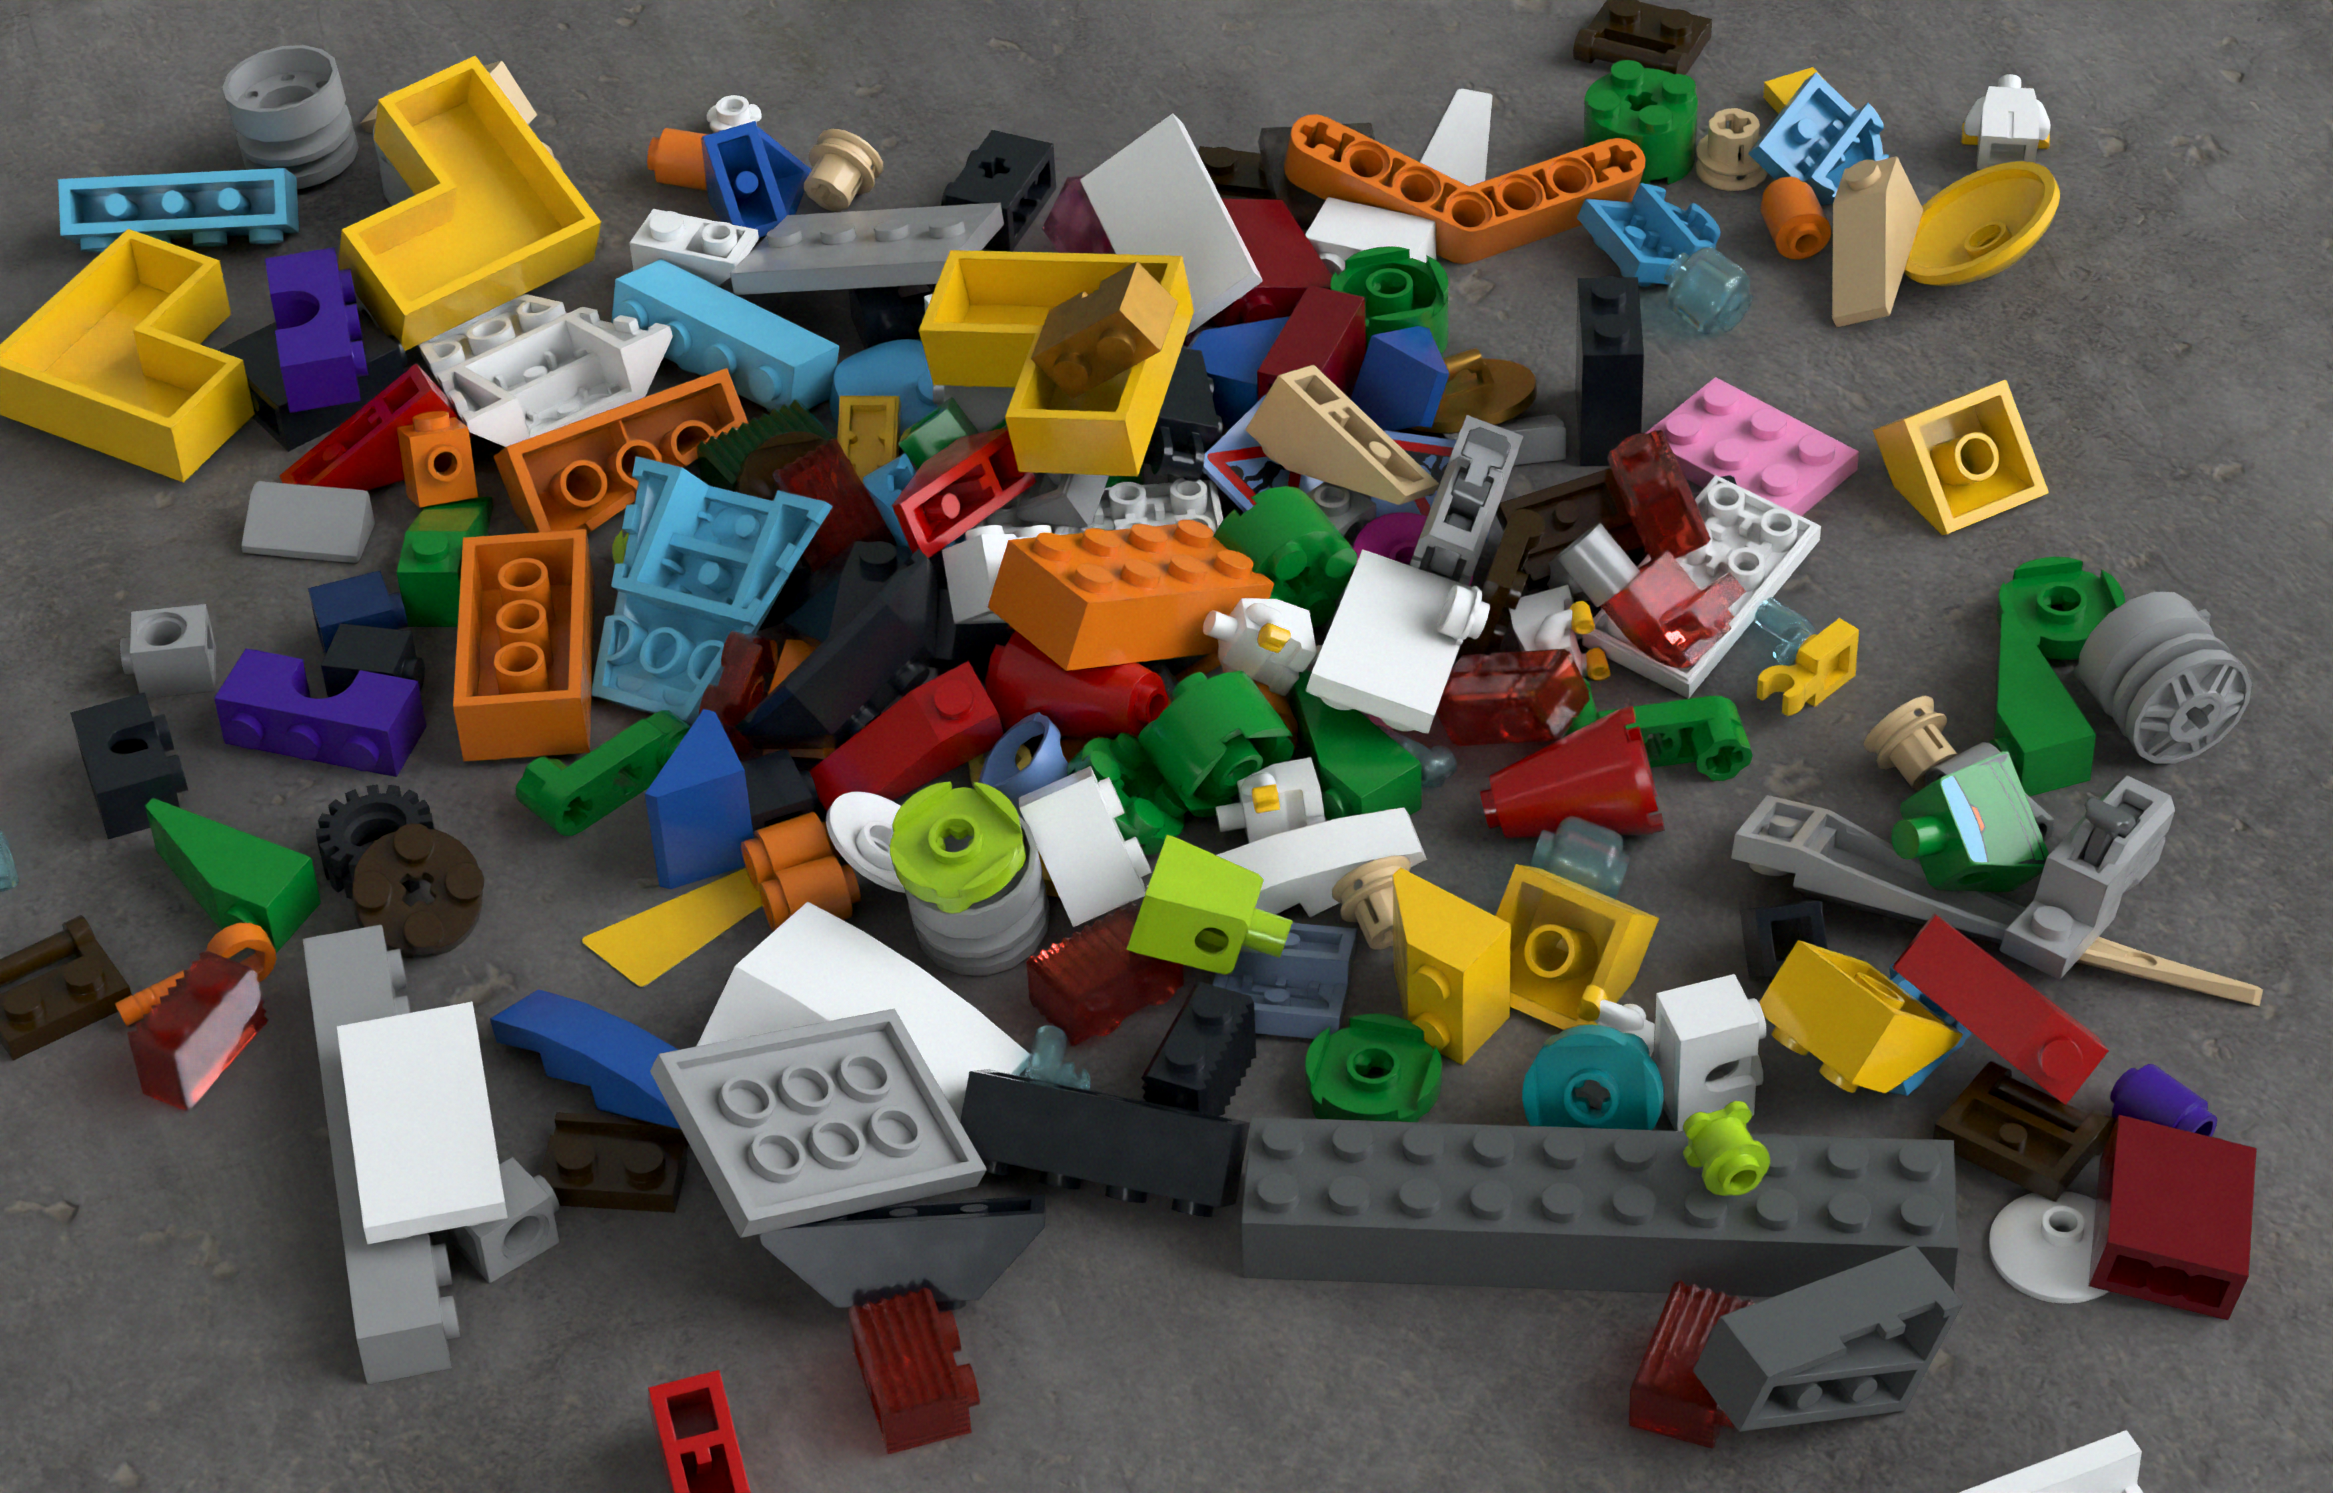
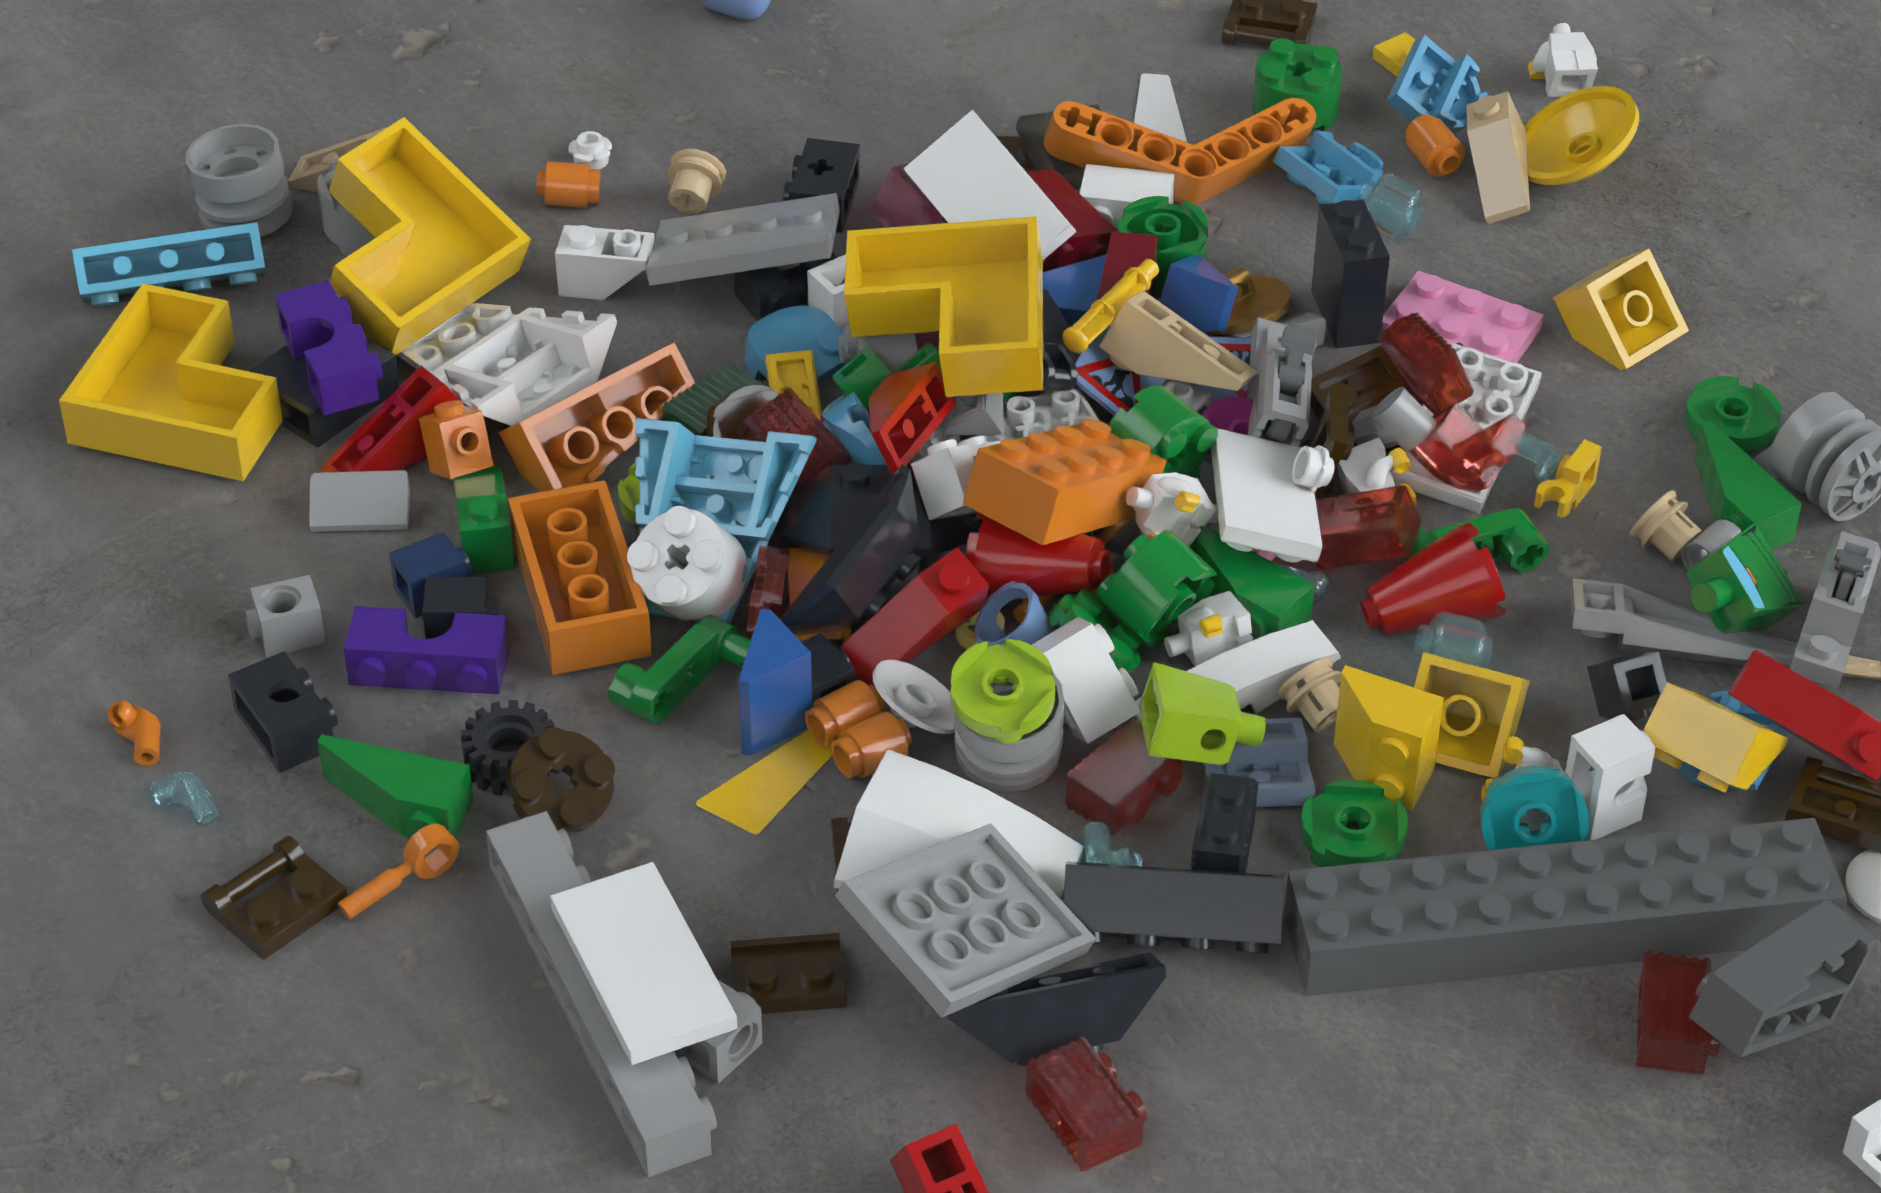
camera: 15 degrees left, 0 degrees up
(197, 1030) = (418, 915): clear red brick -> none
(591, 1050) = (775, 896): blue slope -> none
(647, 644) = (688, 564): none -> white brick
(718, 330) = (655, 318): medium azure brick -> none
(752, 177) = (624, 194): blue slope -> none
(1104, 331) = (999, 281): pearl gold brick -> none
(1255, 384) = (1106, 309): none -> yellow piece
(1719, 151) = (1367, 100): tan piece -> none
(1725, 1150) = (1665, 847): lime brick -> none

